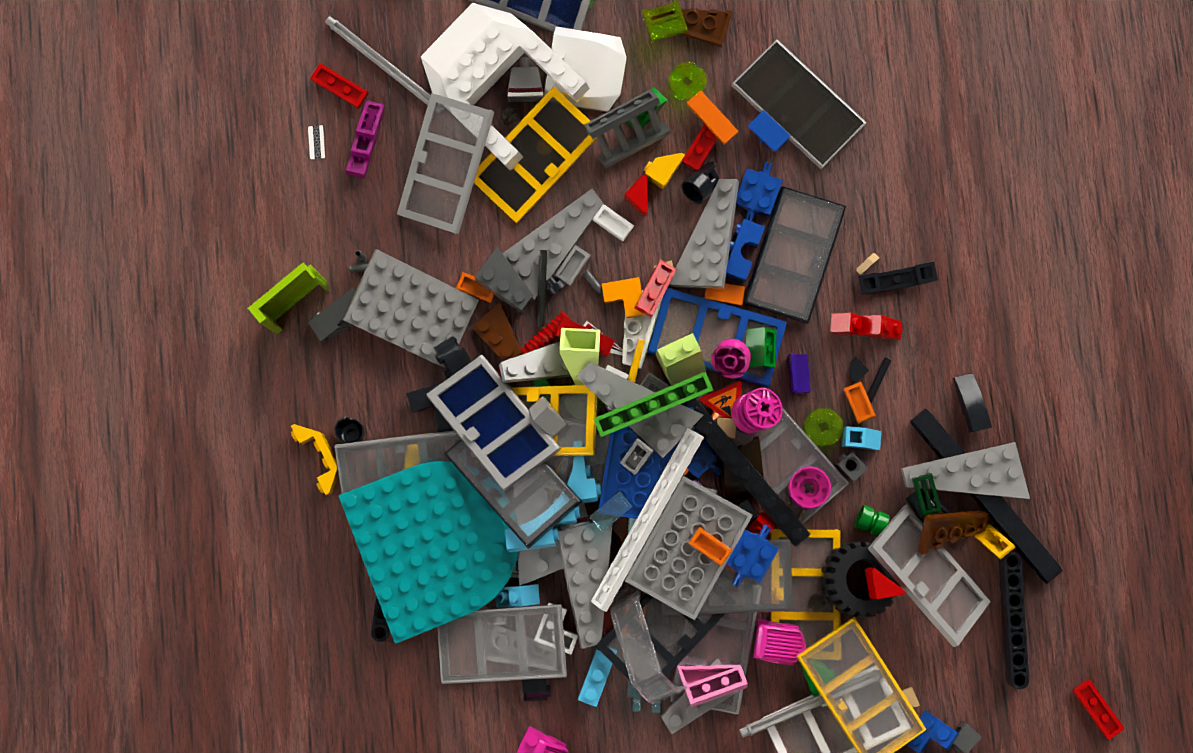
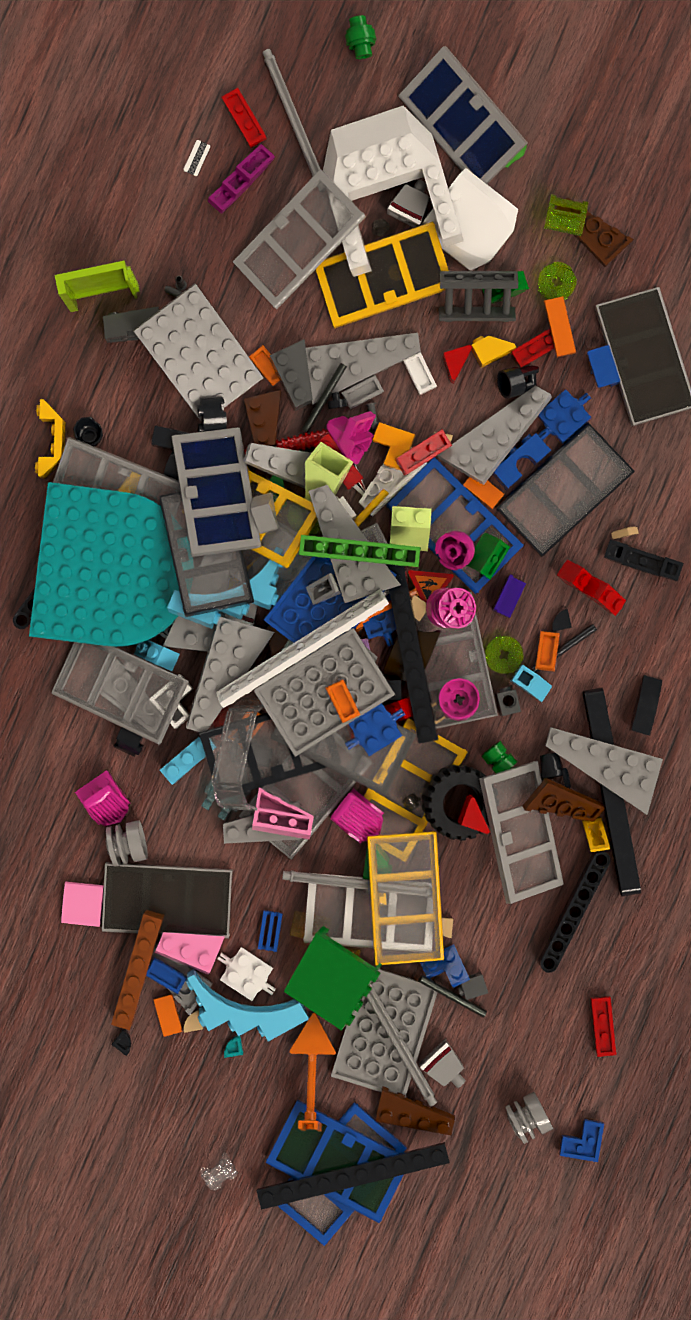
camera: 30 degrees right, 5 degrees up
(584, 307) = (352, 434): none -> dark pink piece
(611, 511) = (275, 624): clear light blue tile -> none
(922, 478) = (562, 745): dark green tile -> none

